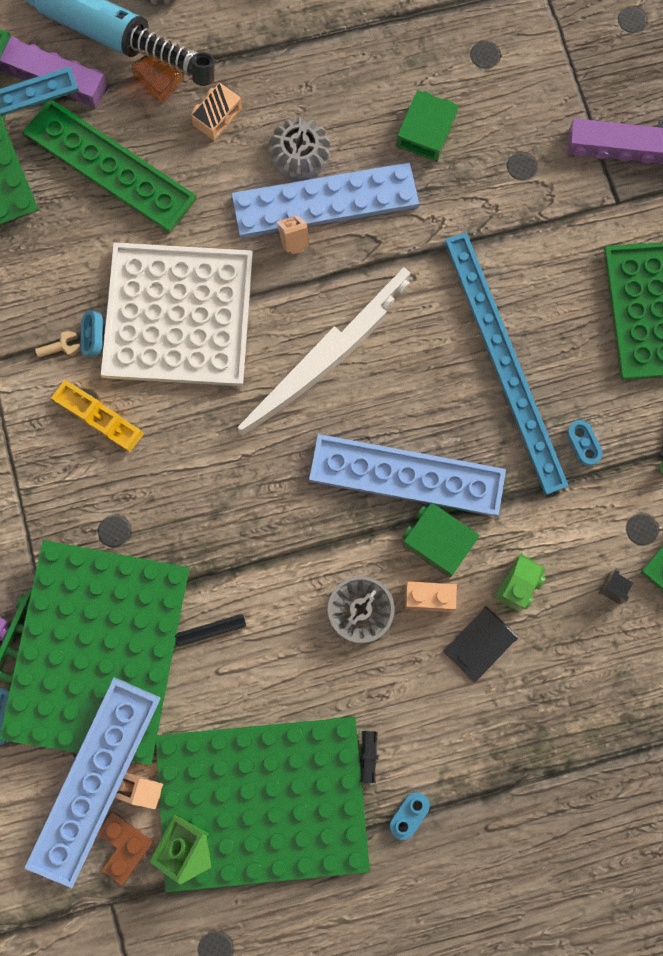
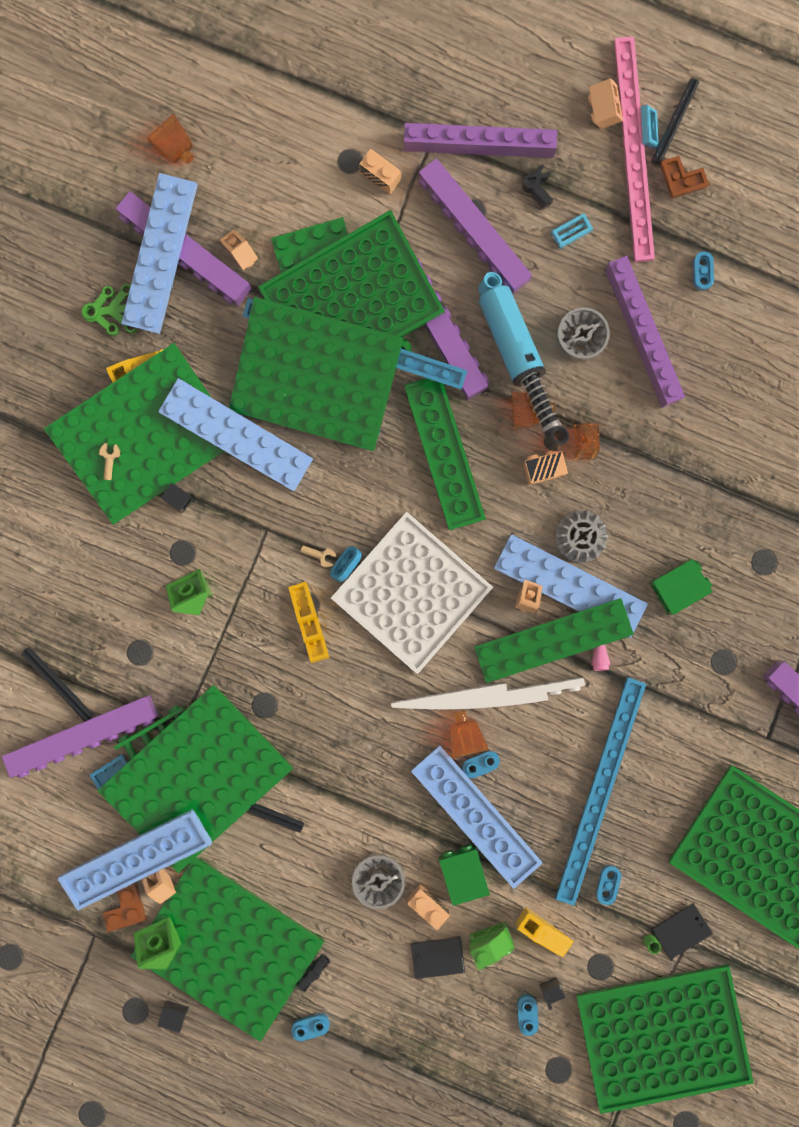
camera: 45 degrees right, 10 degrees up
(234, 55) = (586, 441): none -> clear orange torso
(258, 919) = (172, 1016): none -> black panel
(336, 407) = (465, 736): none -> clear orange torso
(348, 257) = (554, 640): none -> green plate
(373, 423) = (480, 763): none -> dark azure plate
(406, 243) = (600, 659): none -> bright pink cone
(560, 534) = (543, 932): none -> yellow slope
(612, 629) = (527, 1016): none -> dark azure plate

